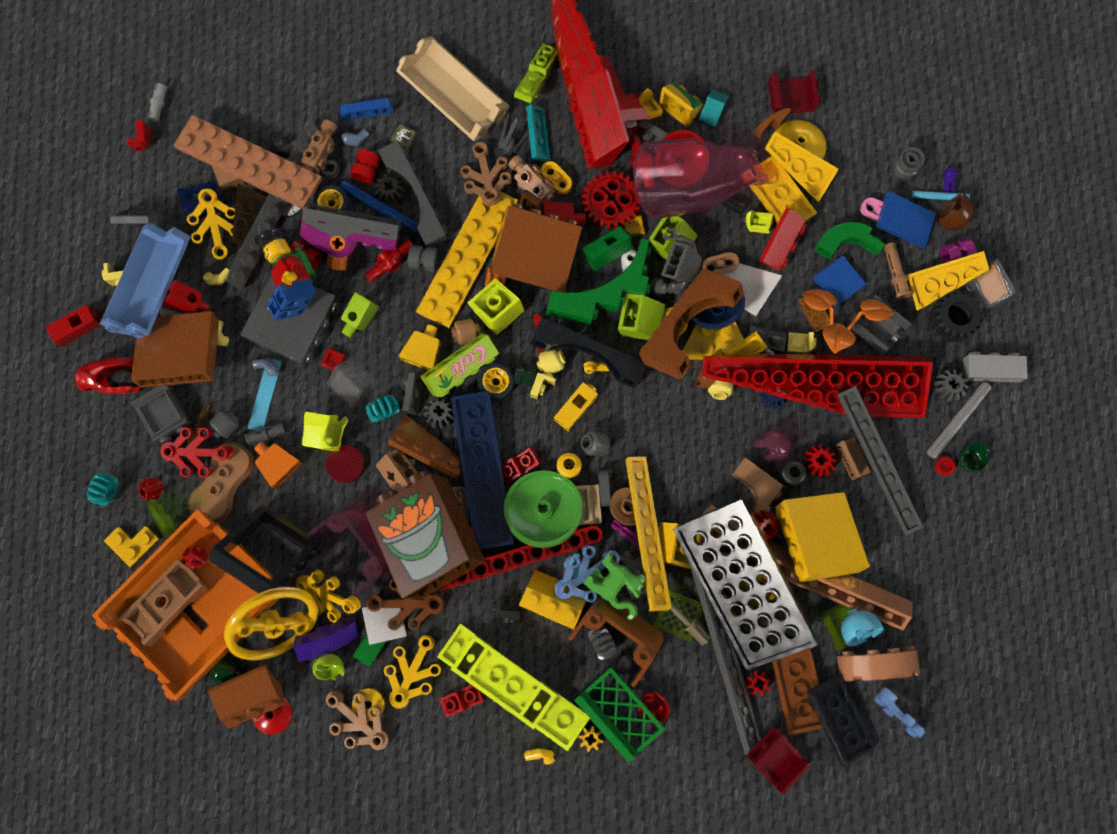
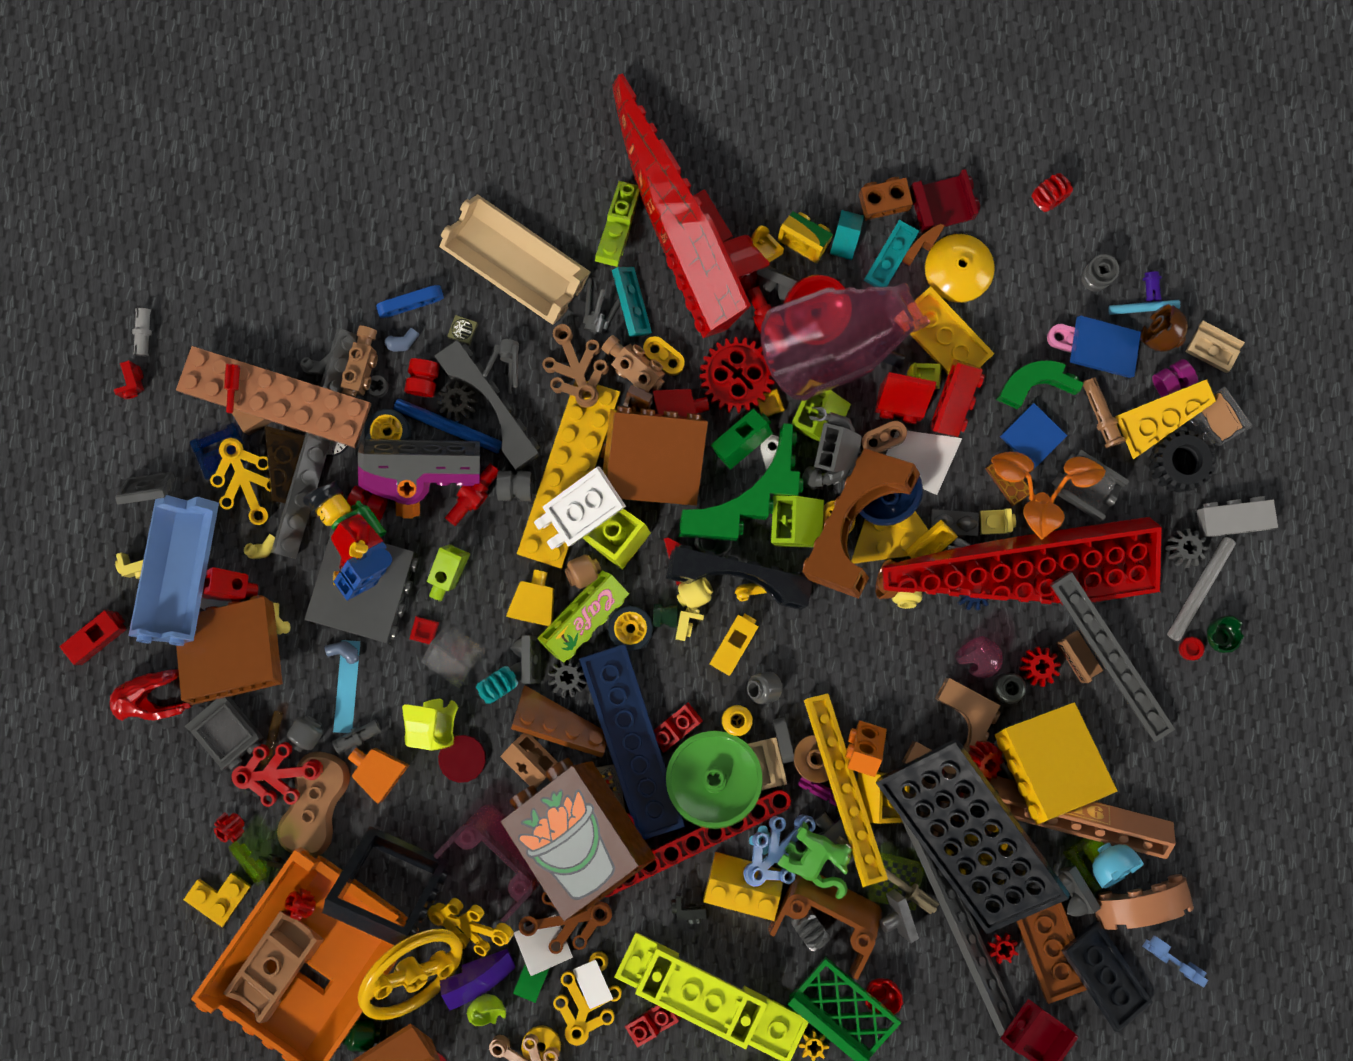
camera: 10 degrees left, 5 degrees up
(102, 489) = (170, 837): teal gear -> none
(216, 145) = (231, 384): none -> red axle
(418, 659) = (592, 984): none -> white sticker
(435, 158) = (508, 353): none -> dark grey plant
(470, 279) = (580, 508): none -> white tile
(669, 502) = (866, 748): none -> orange brick
(676, 644) = (899, 918): none -> flat silver tile
(741, 232) = (904, 397): none -> red slope
(747, 126) = (891, 255): none -> teal plate
(748, 89) = (887, 204): none -> dark orange brick
(806, 168) = (972, 298): yellow wing -> none
(829, 653) = (1082, 899): none -> dark grey tile
(879, 97) = (1052, 192): none -> red gear
(993, 233) = (1214, 347): none -> tan plate

